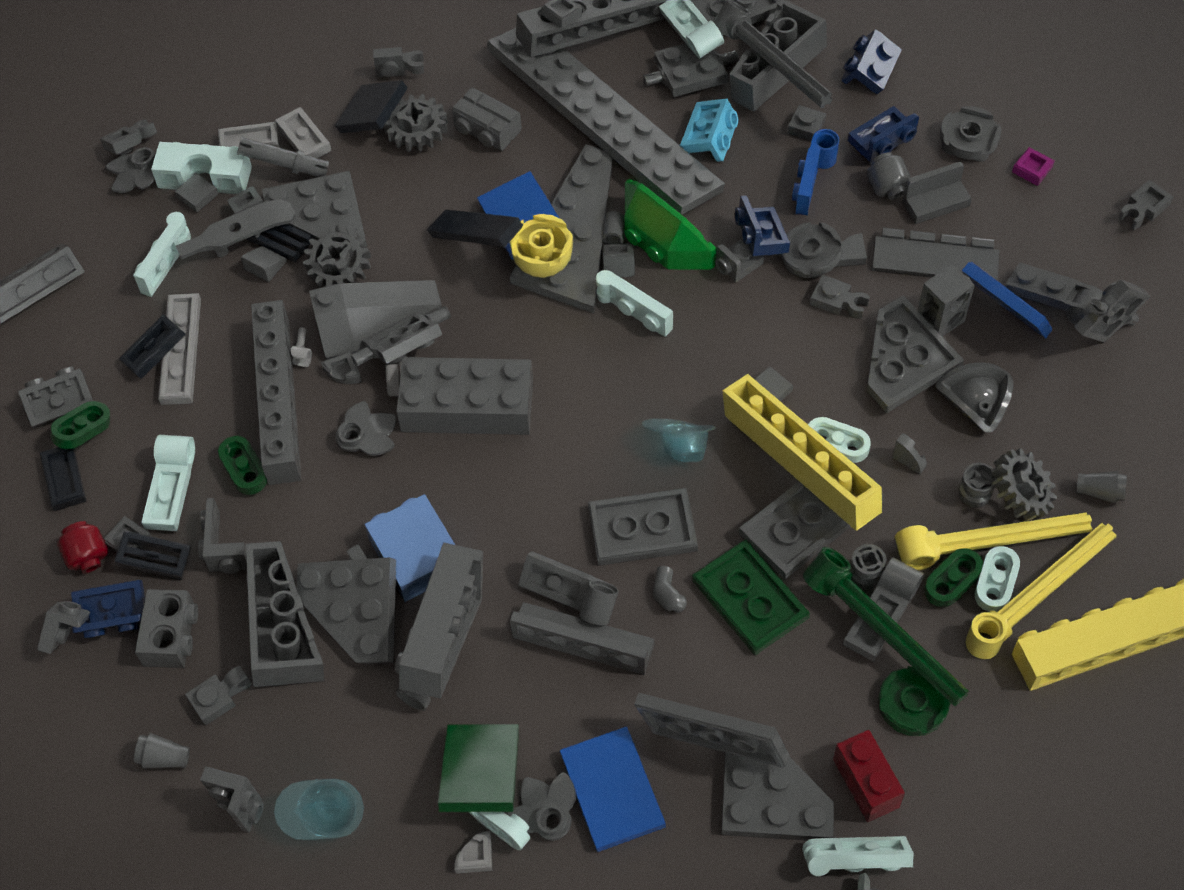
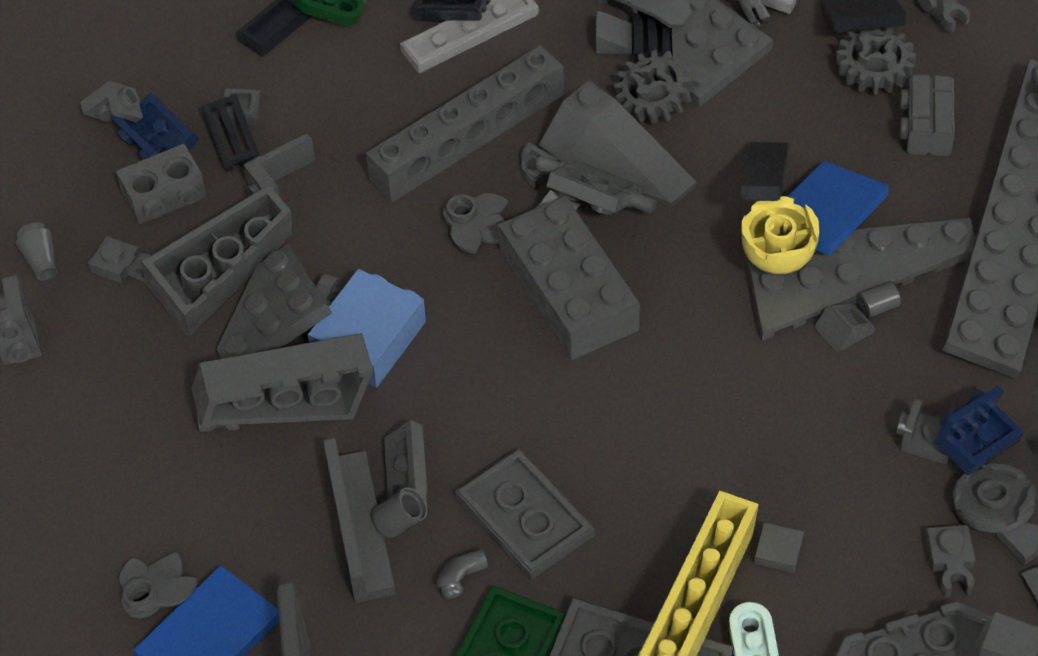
camera: 60 degrees right, 5 degrees down
(82, 547) = (205, 76): dark red head -> none
(169, 483) = (338, 92): light aqua plate -> none
(243, 467) = (366, 139): dark green plate -> none
(301, 355) = (526, 120): light grey hand -> none
(319, 809) = (43, 396): clear light blue piece -> none
(475, 855) = (76, 554): light grey tile -> none
(479, 768) = (156, 502): dark green tile -> none
(510, 829) = (111, 558): light aqua plate -> none
(634, 302) = (790, 363): light aqua plate -> none
(664, 231) = (903, 339): green wedge -> none
(681, 439) = (650, 487): clear light blue piece -> none

